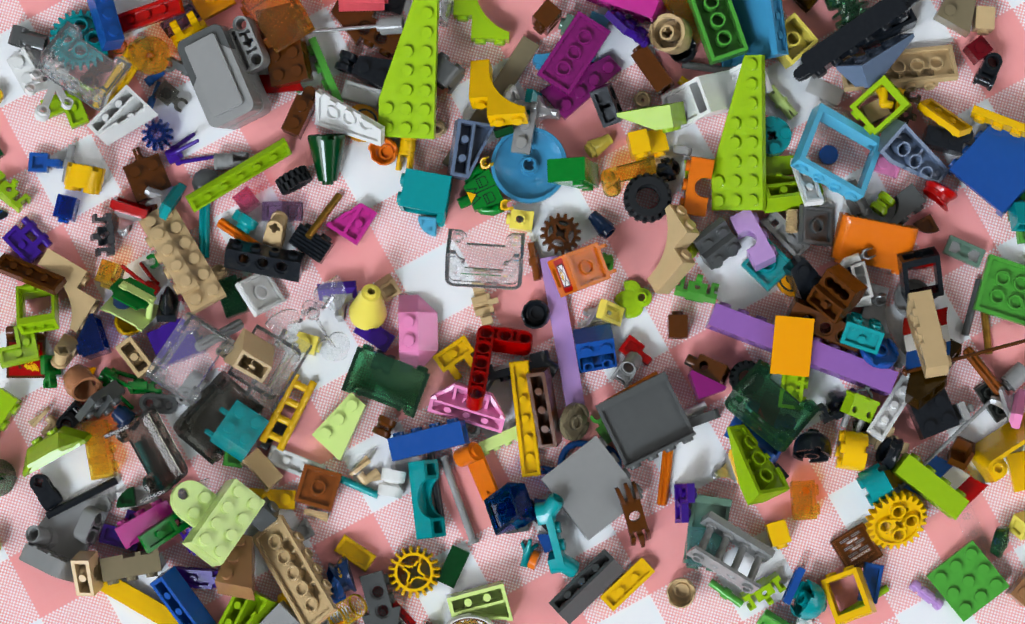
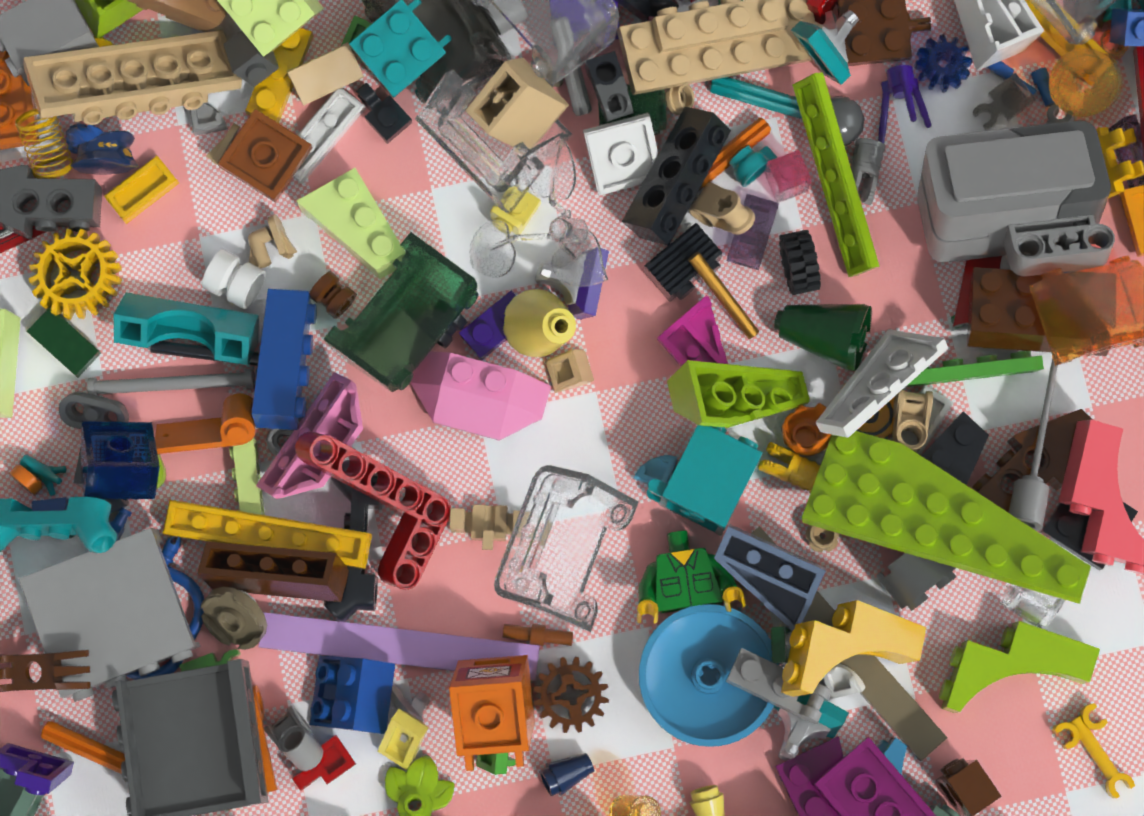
camera: 105 degrees right, 5 degrees down
(226, 309) = (609, 86): none -> leg
(291, 423) = (387, 143): yellow bar -> none
(300, 113) = (914, 306): reddish brown brick -> none
(346, 62) = (984, 410): black wheel -> none
(358, 486) = (253, 221): teal bar -> none
(361, 97) = (912, 414): none -> tan piece
(378, 193) = (733, 393): none -> lime wedge
(453, 354) = (418, 446): yellow plate -> none
(486, 535) = (95, 409): none -> dark grey plate
(526, 225) = (616, 645): light yellow brick -> none
(535, 314) = (442, 608): black hair -> none
(573, 172) = (667, 752): green wedge -> none

